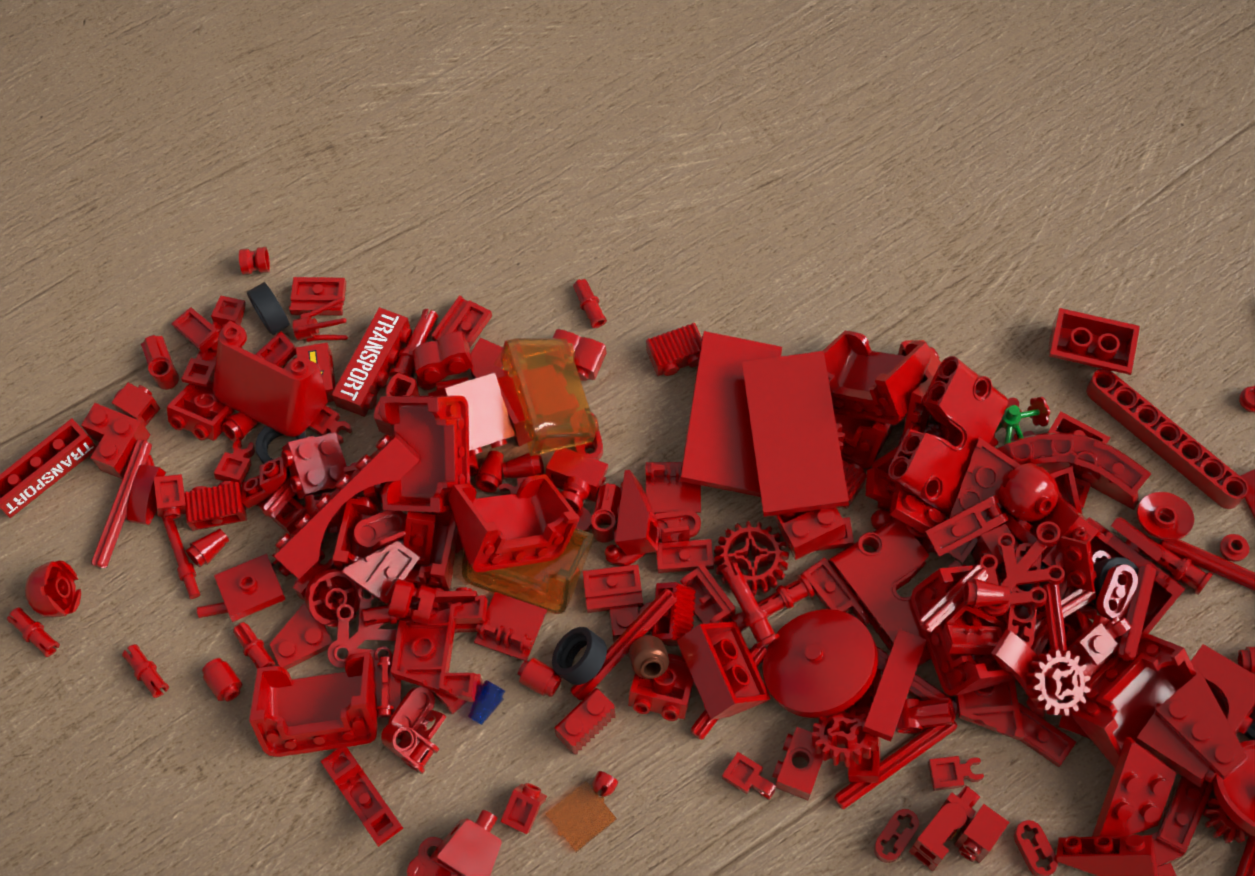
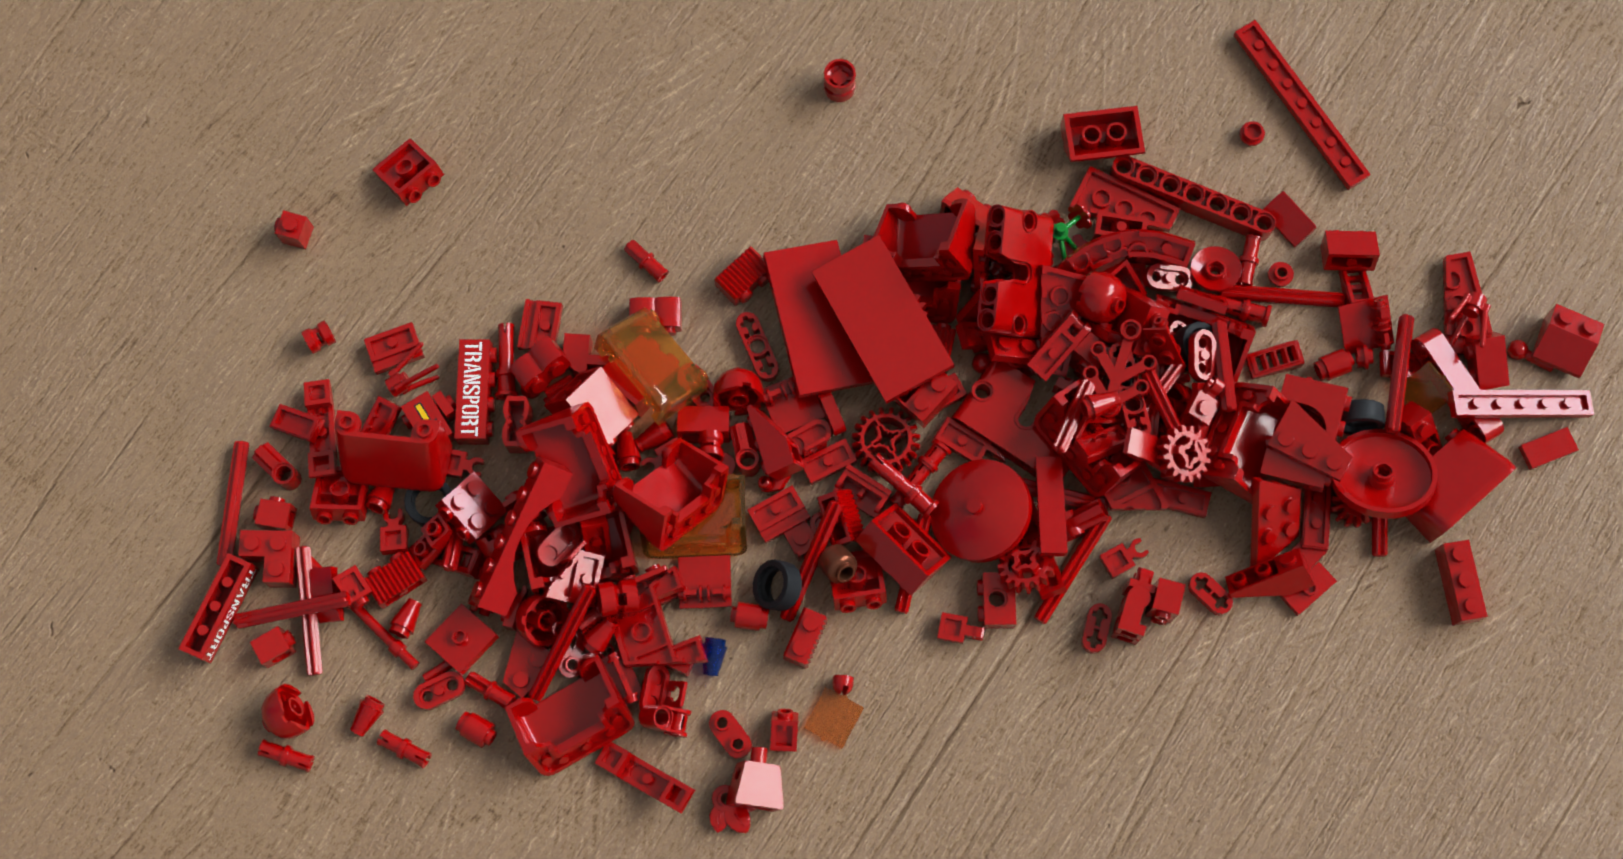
camera: 25 degrees left, 10 degrees up
(73, 524) = (274, 646): none -> red brick
(105, 494) = (292, 609): none -> red axle
(108, 373) = (233, 500): none -> red axle
(126, 623) = (366, 715): none -> red cone
(206, 628) = (439, 688): none -> red plate
(268, 308) = (356, 379): black tyre -> none
(278, 160) = (293, 229): none -> red brick
(338, 361) = (446, 404): none -> red plate
(340, 625) = (562, 642): none -> red axle
(381, 634) = (600, 635): none -> red cone
(405, 147) = (409, 172): none -> red plate
(468, 788) = (730, 734): none -> red plate
(623, 451) = (737, 390): none -> red cylinder
(668, 430) = (756, 327): none -> red beam
(708, 510) = (832, 413): none -> red beam
(847, 204) = (839, 80): none -> red wheel
(1080, 402) = (1112, 195): none -> red wing
(1109, 504) = (1166, 277): none -> plate
(1198, 622) = (1296, 354): none -> red slope
(1205, 520) = (1249, 259): none -> red pin

